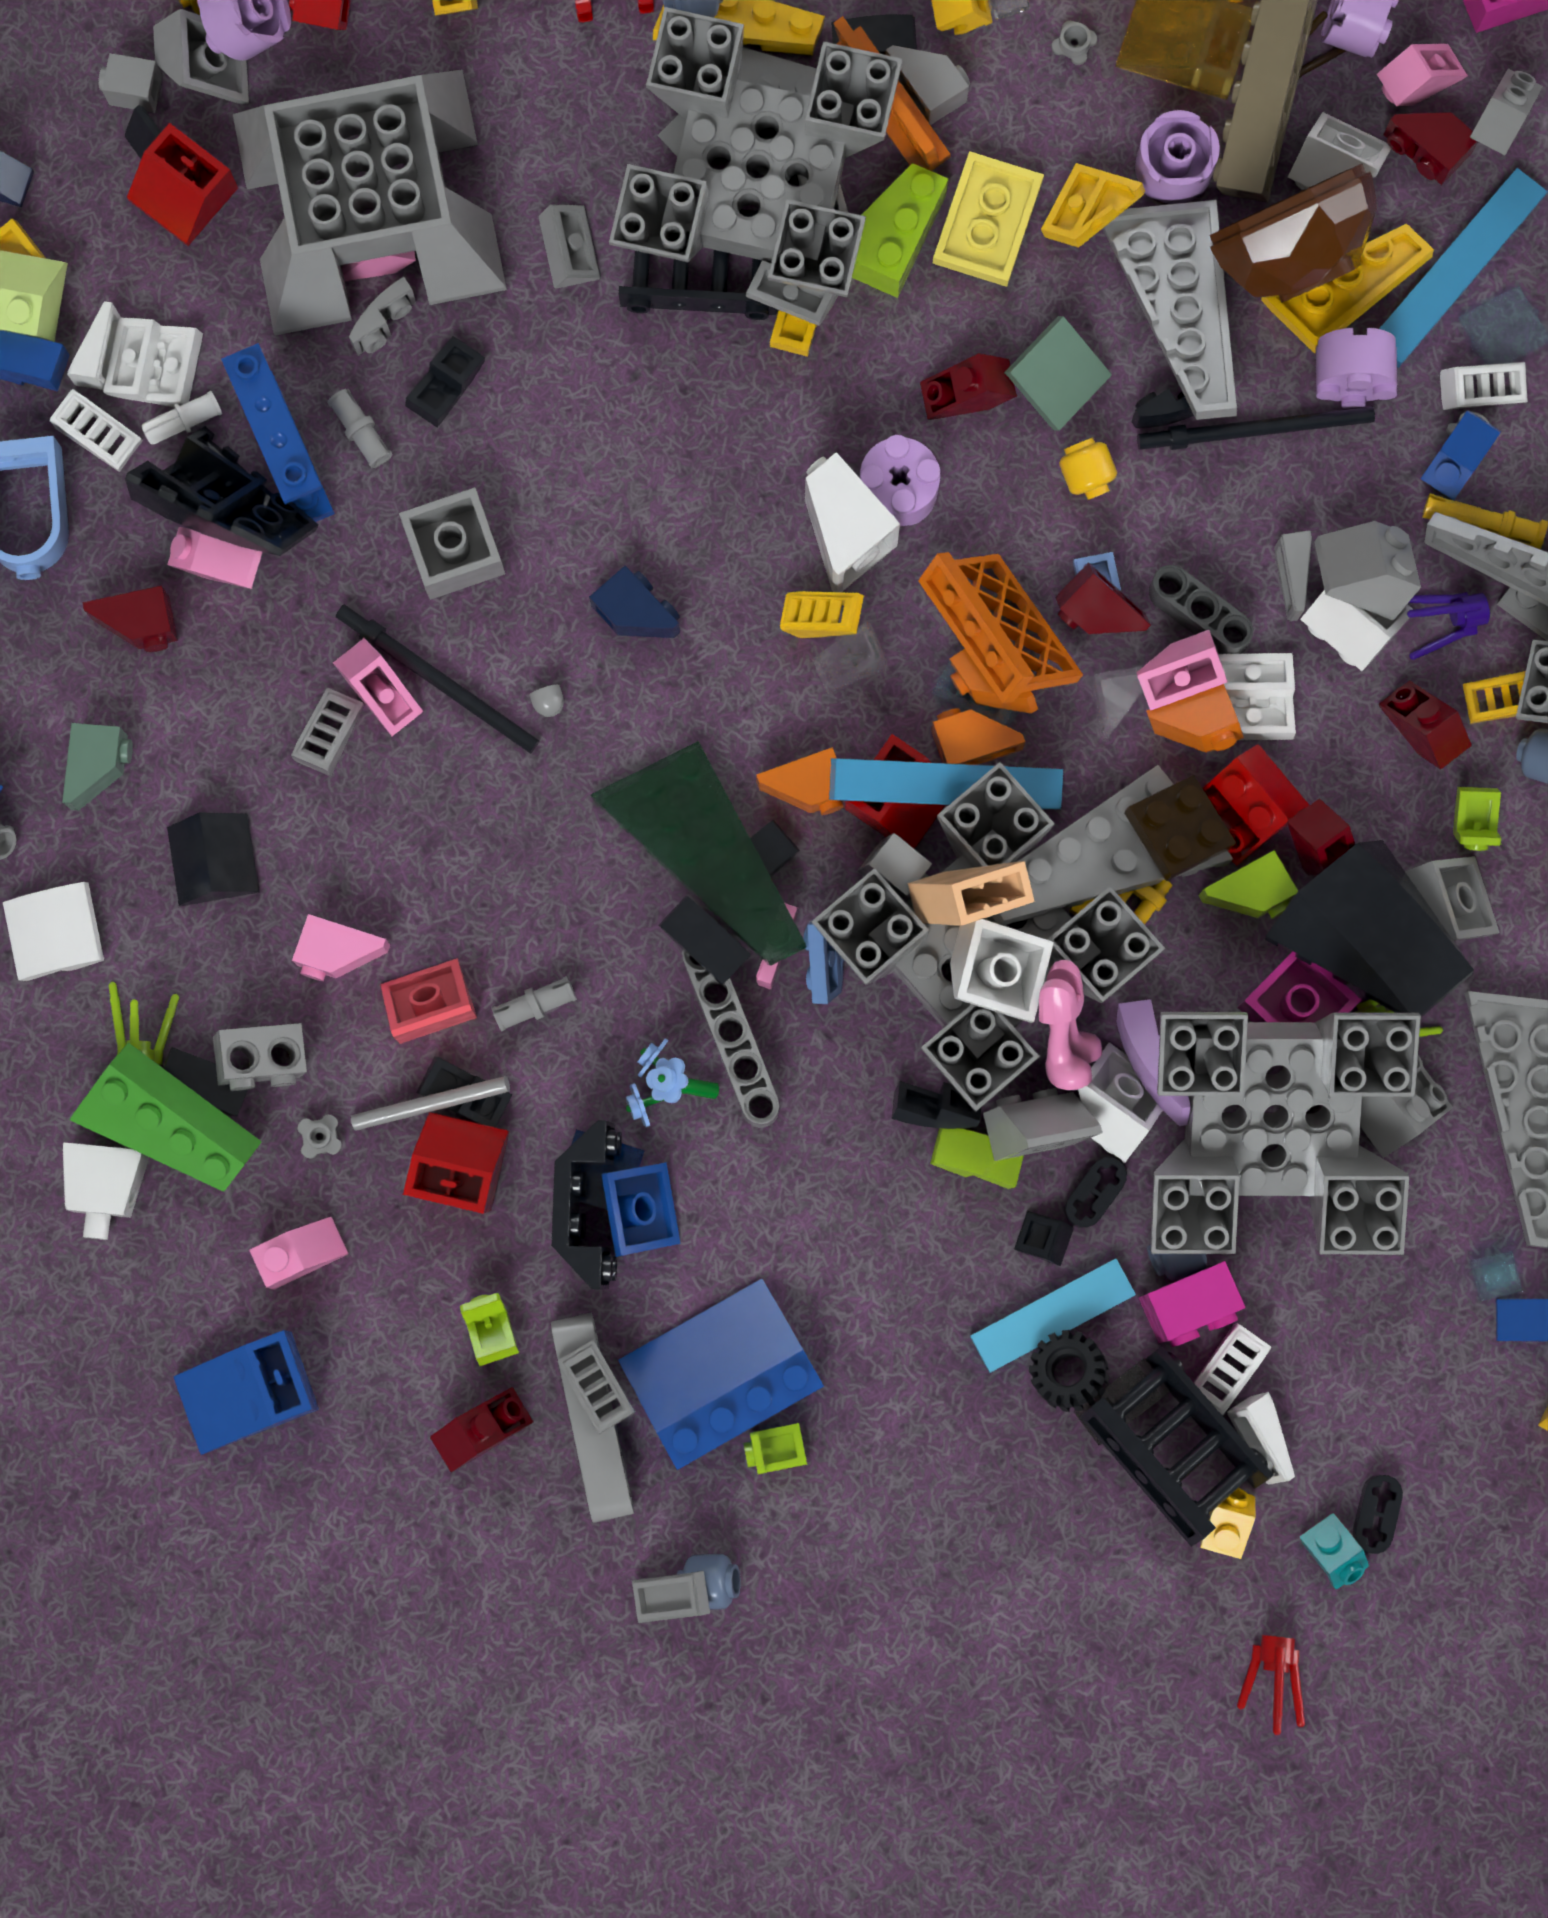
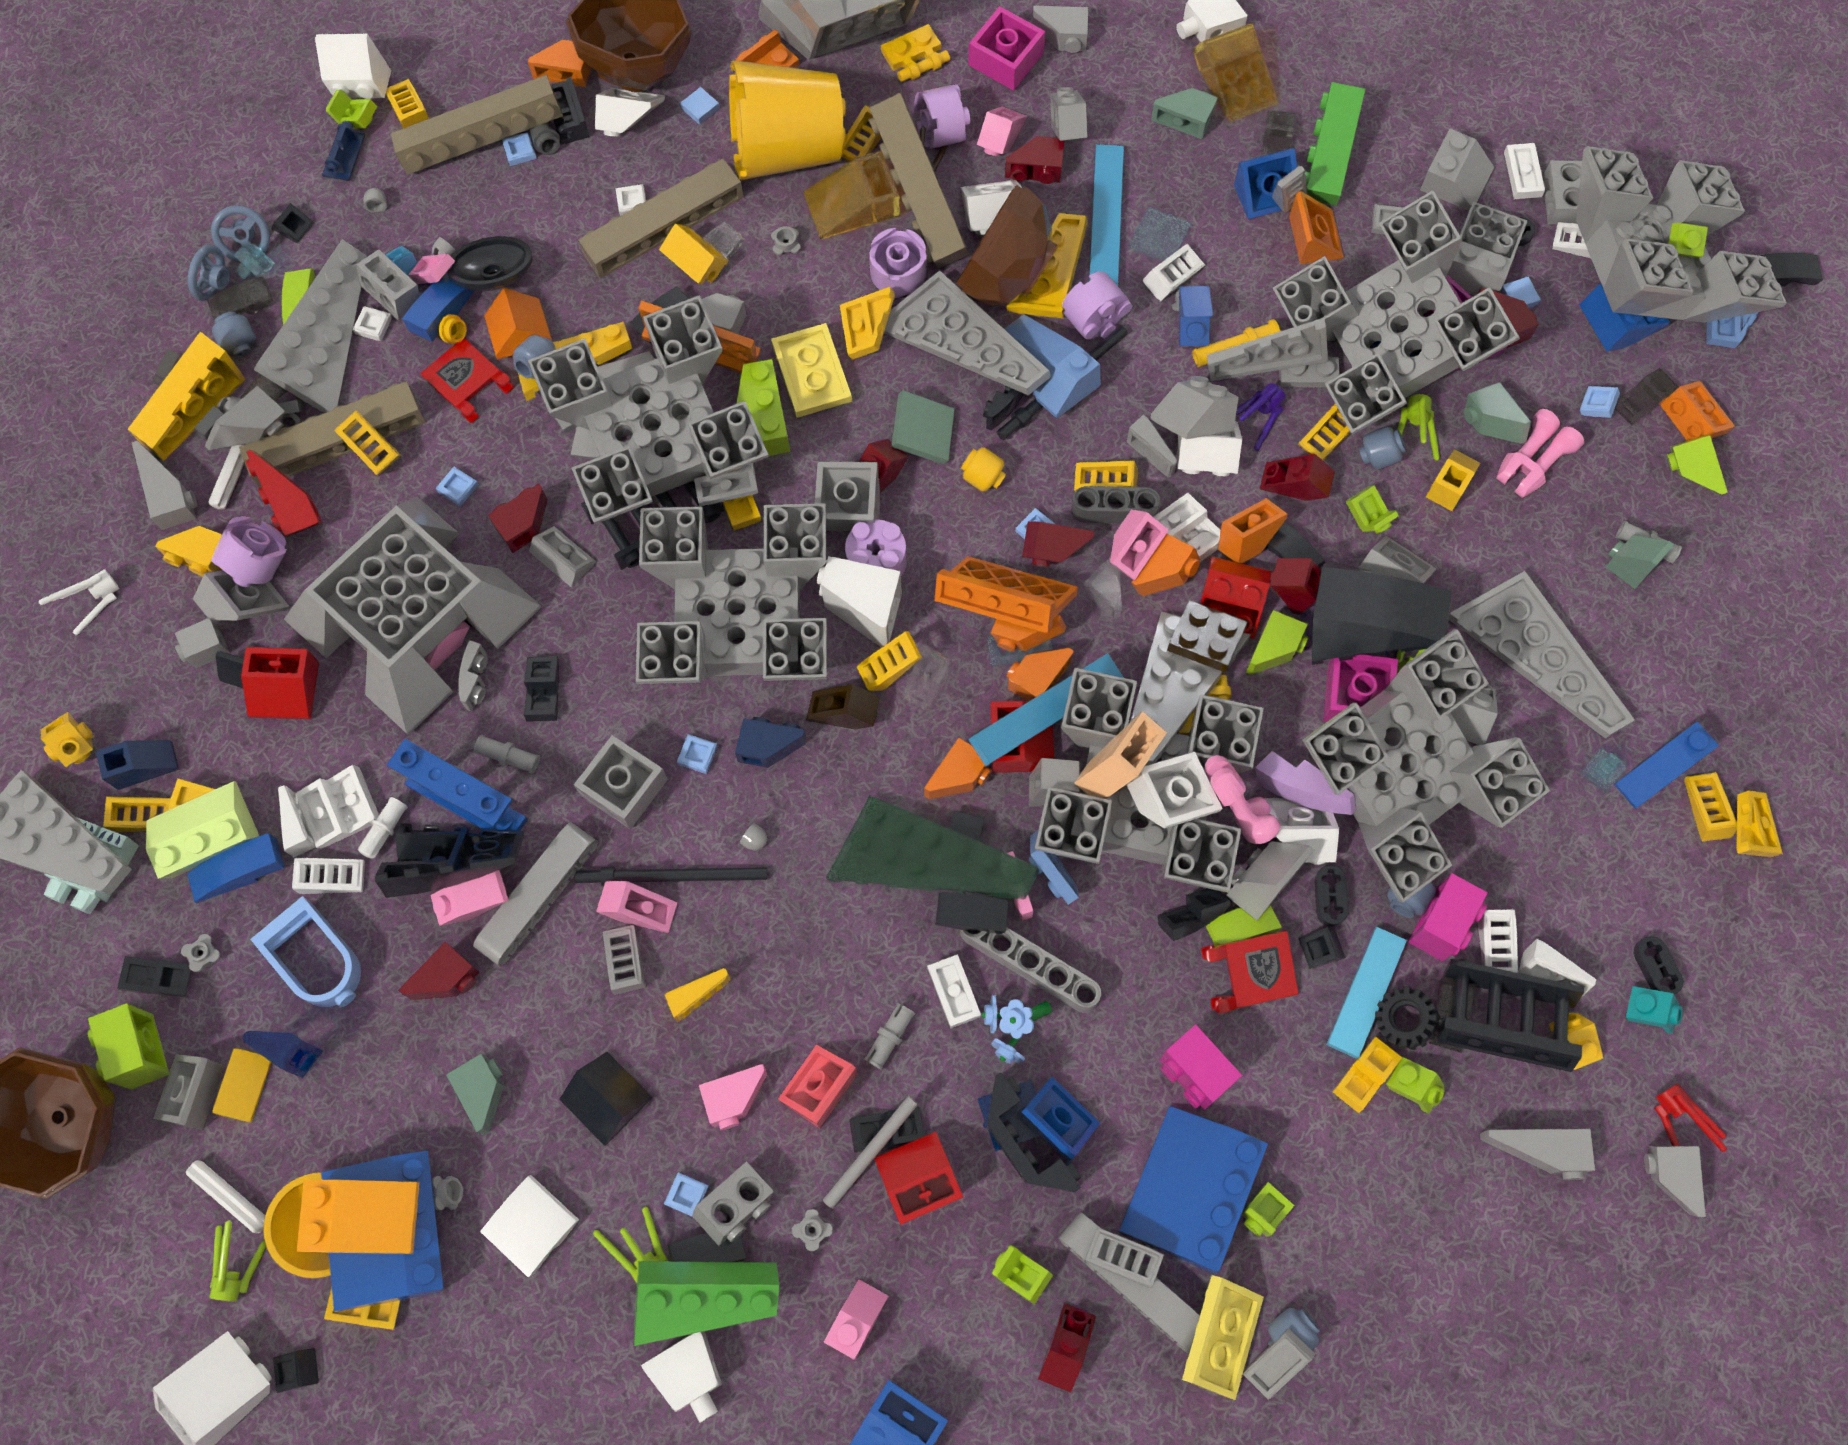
camera: 35 degrees left, 10 degrees down
(224, 1011) = (686, 1194): none -> light blue tile
(287, 597) = (534, 893): none -> light grey beam
(364, 818) = (692, 995): none -> yellow slope
(513, 87) = (457, 486): none -> light blue tile
(553, 173) = (520, 518): none -> dark red slope
(554, 568) = (697, 754): none -> light blue tile
(632, 1006) = (954, 991): none -> white plate
(636, 1532) = (1223, 1337): none -> light yellow plate
(717, 509) = (703, 580): none -> light grey slope
(740, 627) = (843, 707): none -> dark brown slope
(815, 1263) = (1198, 1068): none -> dark pink brick
(914, 394) = (849, 493): none -> light grey slope
(956, 1210) = (1258, 970): none -> red flag
(985, 1395) = (1367, 1074): none -> yellow slope
(1027, 1442) = (1417, 1084): none -> lime bracket
(1109, 1605) = (1552, 1150): none -> light grey slope
(1216, 1722) = (1678, 1175): none -> light grey slope
(1244, 593) = (1106, 468): none -> yellow slope
(1266, 409) = (1071, 368): none -> medium blue wedge
(1323, 745) = (1250, 530): none -> orange slope
(1356, 795) = (1291, 544): none -> black slope

